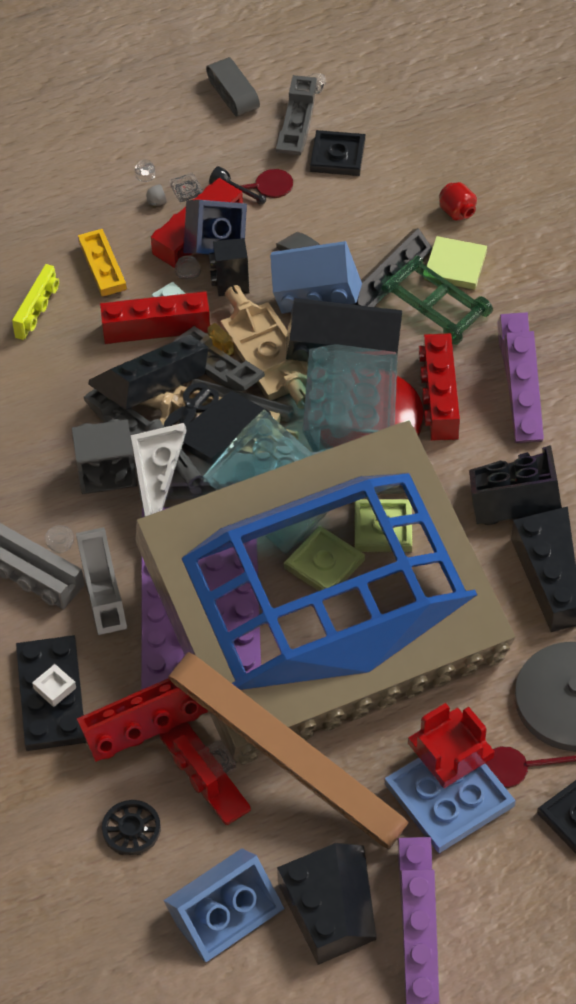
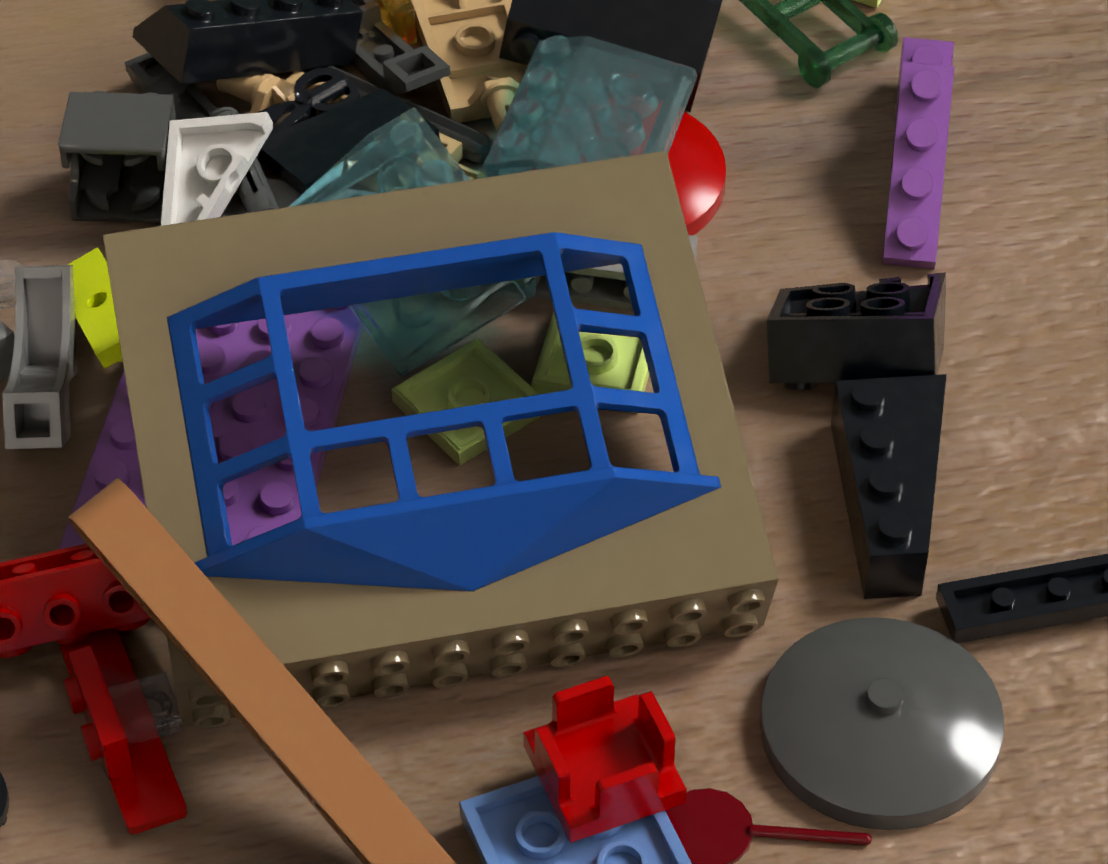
camera: 10 degrees right, 5 degrees down
(121, 545) = (95, 306): none -> neon yellow tile
(440, 387) = (766, 145): red brick -> none

